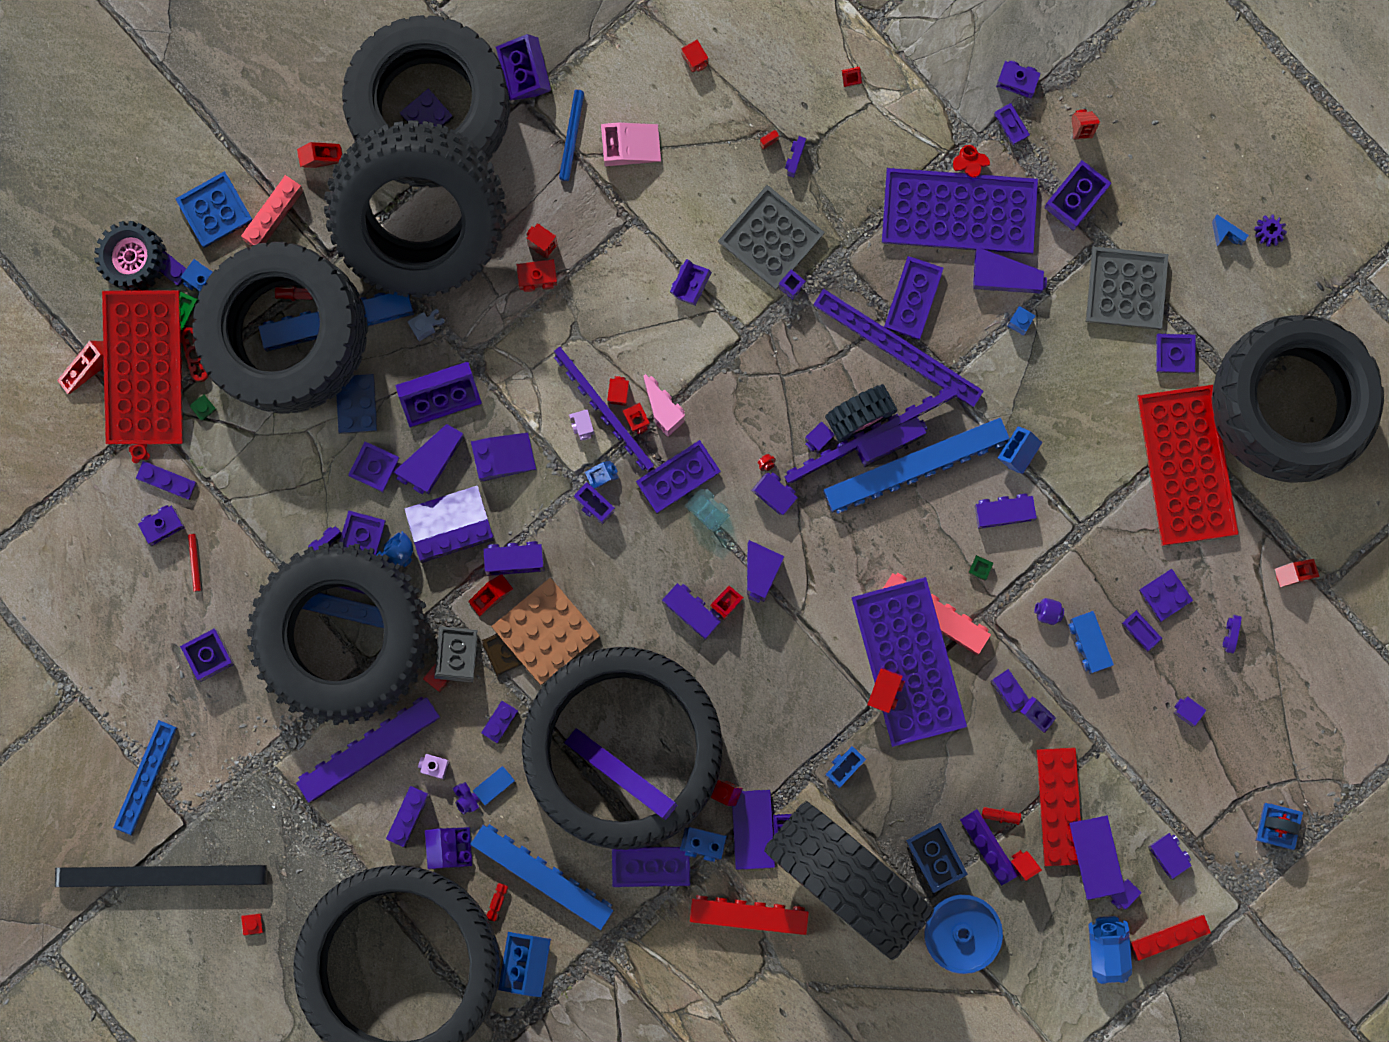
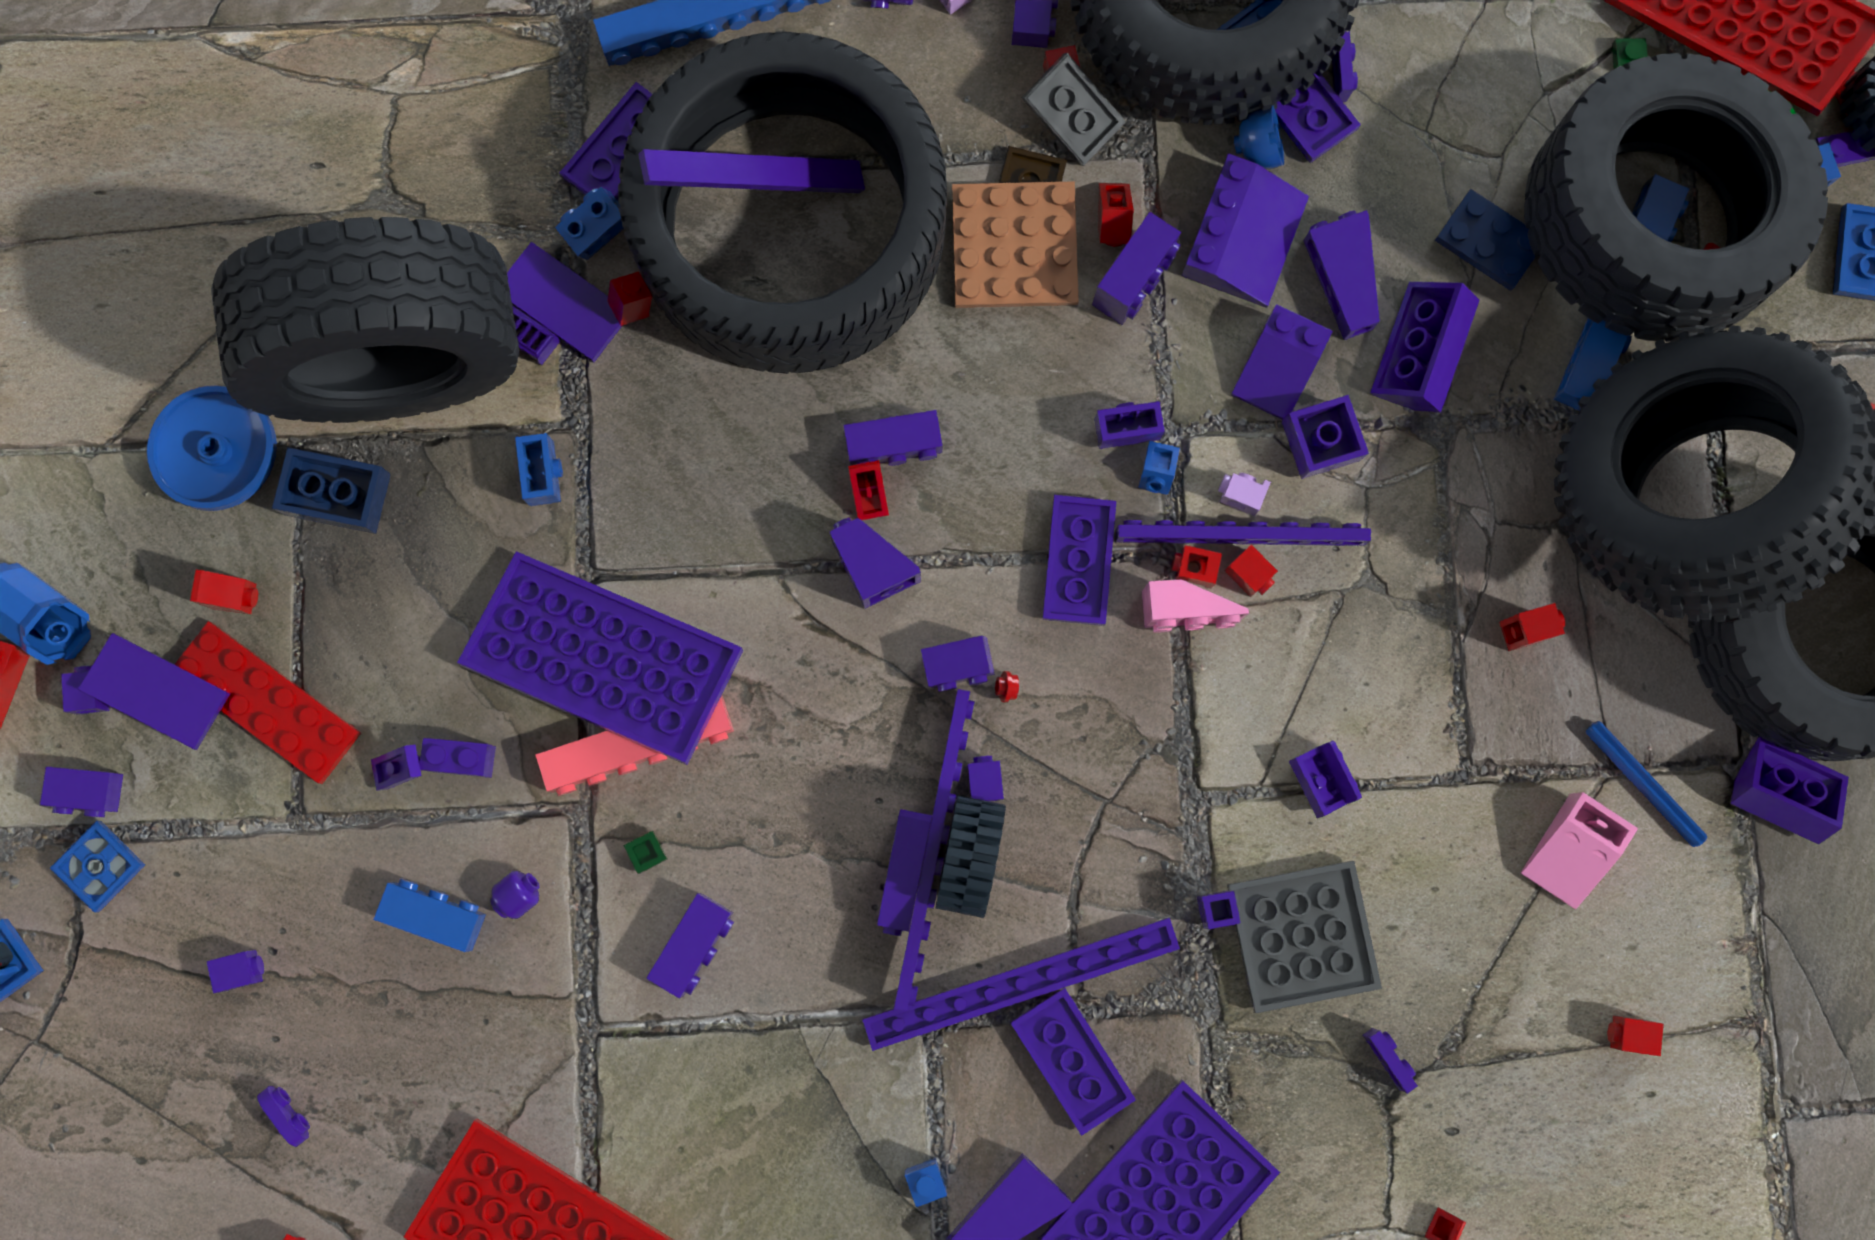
camera: 125 degrees right, 0 degrees up
(272, 212) = (1828, 315): coral brick -> none
(373, 466) = (1392, 197): dark purple plate -> none
(423, 326) = (1531, 394): sand blue brick -> none
(427, 109) = (1820, 619): dark purple plate -> none
(493, 785) = (877, 35): blue tile -> none
(499, 722) = (948, 106): dark purple plate -> none
(525, 406) = (1324, 437): none -> dark purple brick
(537, 275) = (1488, 589): red brick -> none
(707, 509) = (1005, 560): clear light blue brick -> none
(749, 916) = (487, 185): red brick -> none
(769, 139) = (1442, 1042): red tile -> none
(885, 690) = (587, 594): red brick -> none
(915, 465) = (846, 880): blue brick -> none
(989, 847) = (291, 570): dark purple plate -> none
(1001, 815) = (316, 619): red axle -> none
(1020, 450) = (754, 1033): blue brick -> none
(1142, 631) = (391, 997): dark purple tile -> none
(1166, 595) = (409, 1069): dark purple plate -> none
(1197, 818) = (97, 866): none -> blue piece

